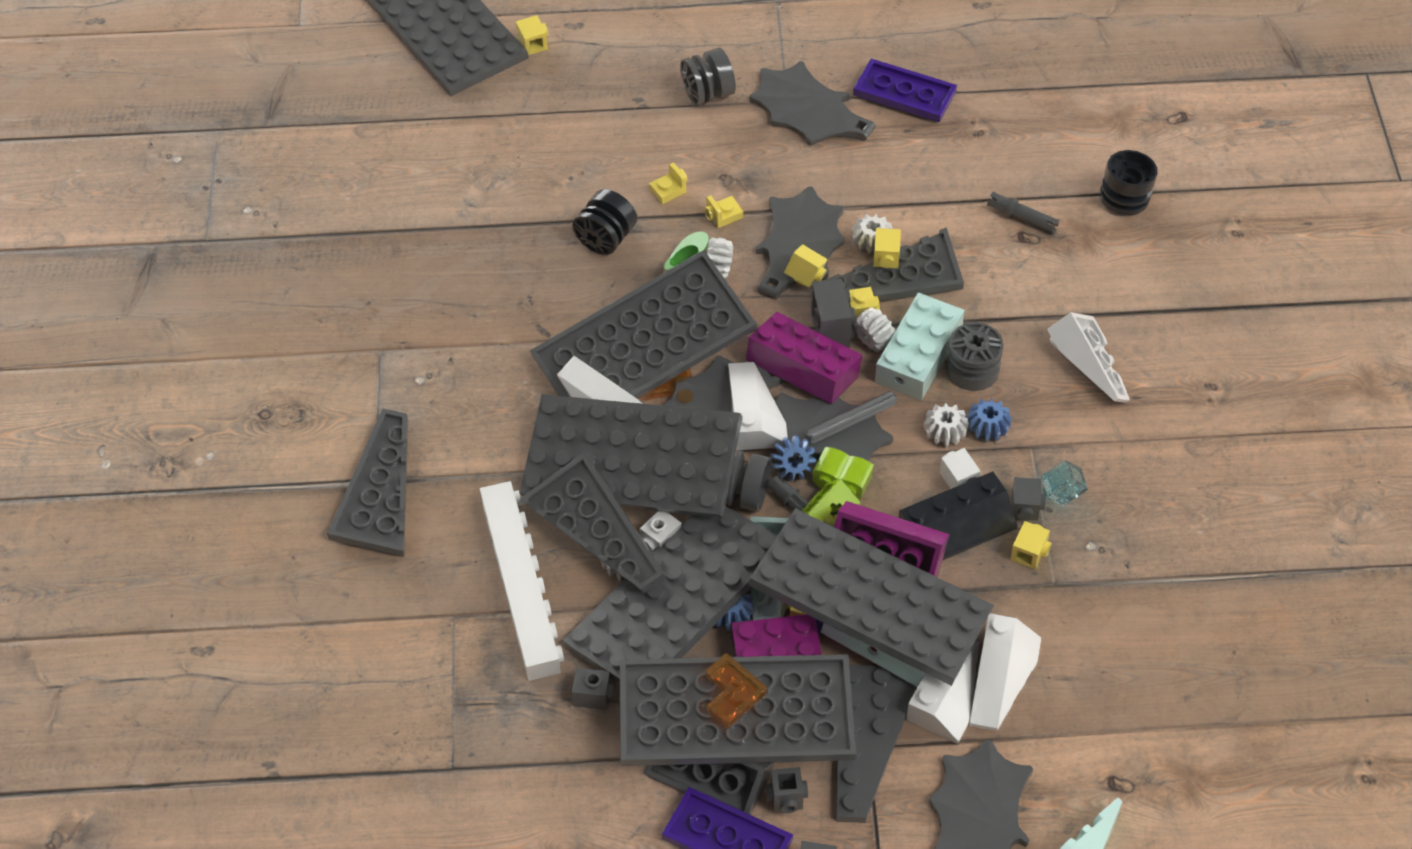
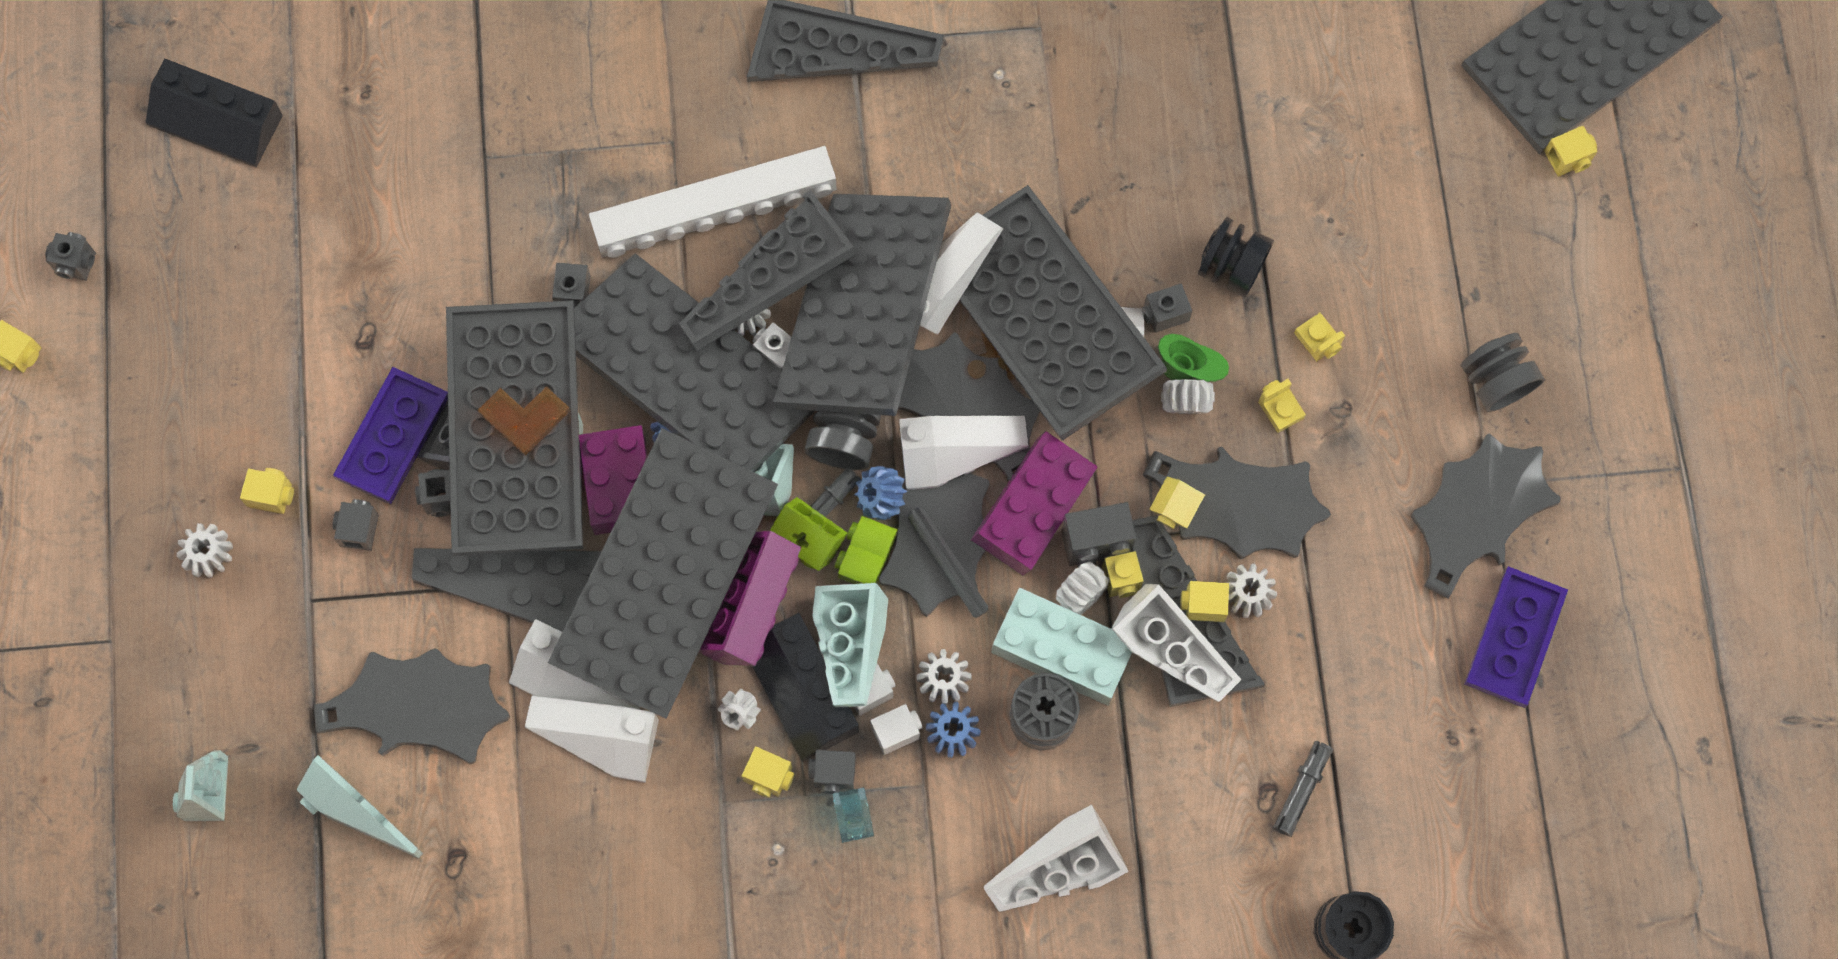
camera: 85 degrees right, 20 degrees up
(639, 269) = (1167, 308): none -> dark grey brick
(915, 271) = (1166, 638): none -> white wedge
(915, 476) = (850, 635): none -> light aqua wedge
(979, 562) = (739, 709): none -> white gear
(992, 453) = (896, 728): none -> white brick

